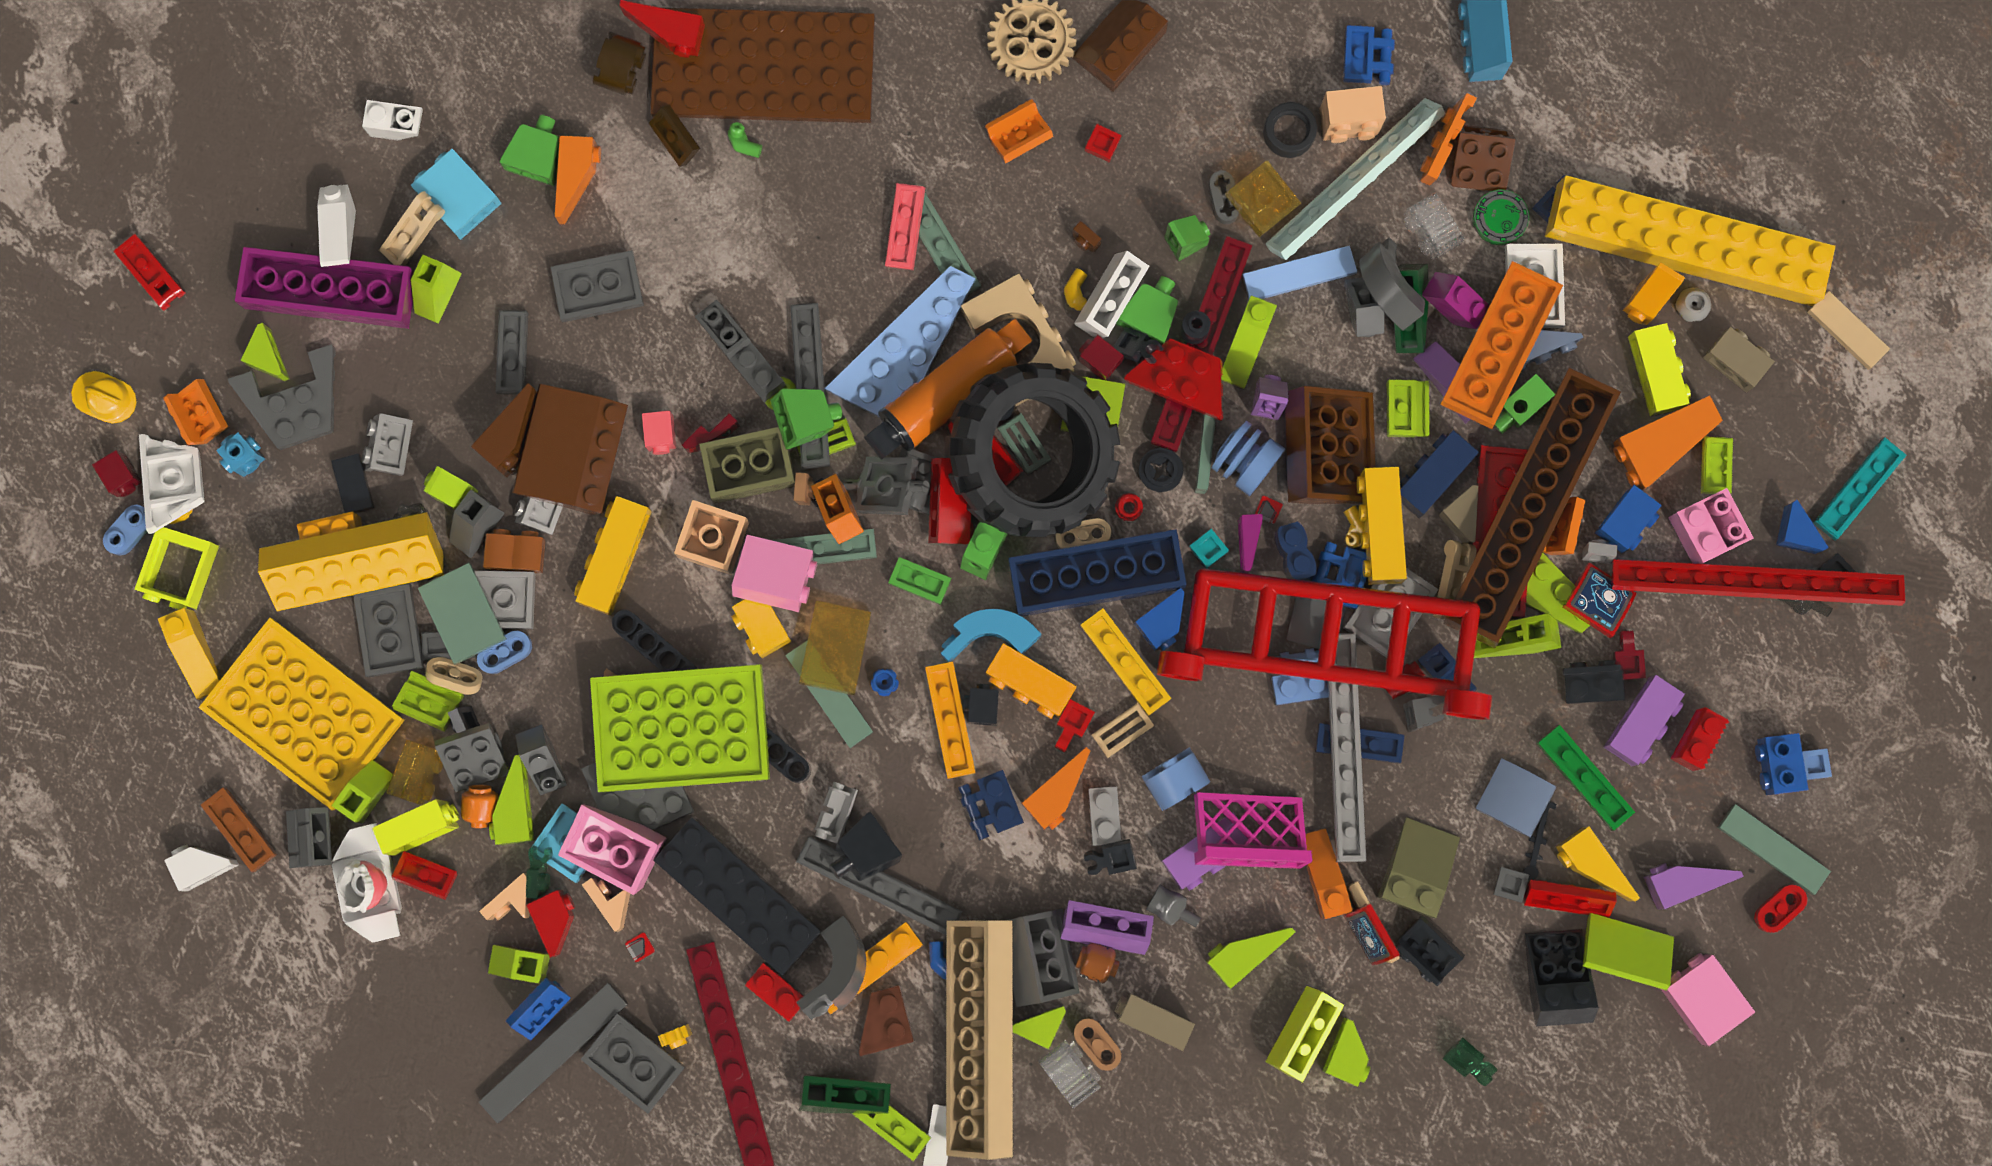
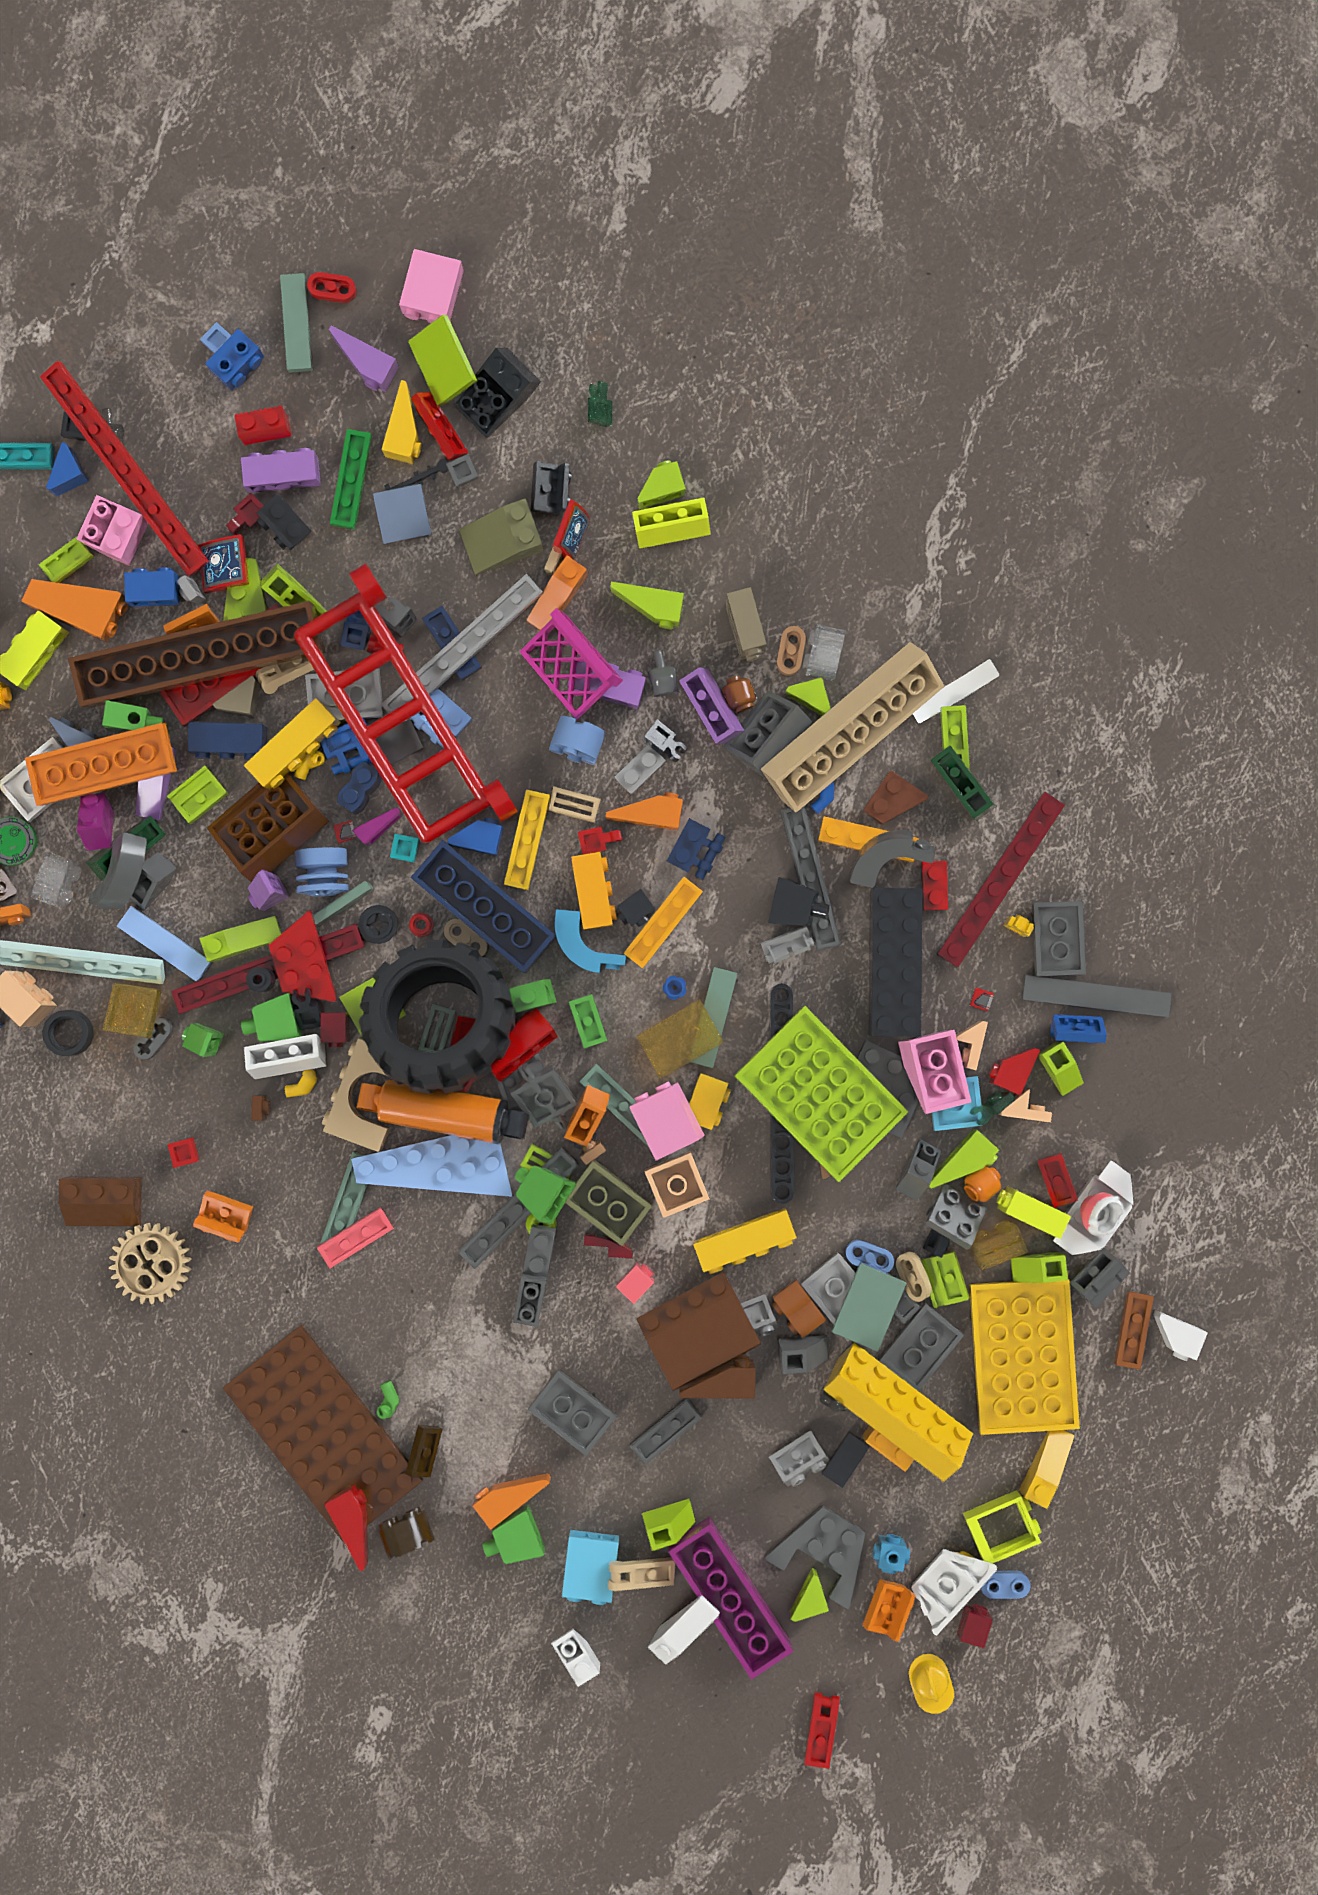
camera: 130 degrees left, 5 degrees up
(446, 487) = (795, 1391): lime slope -> none

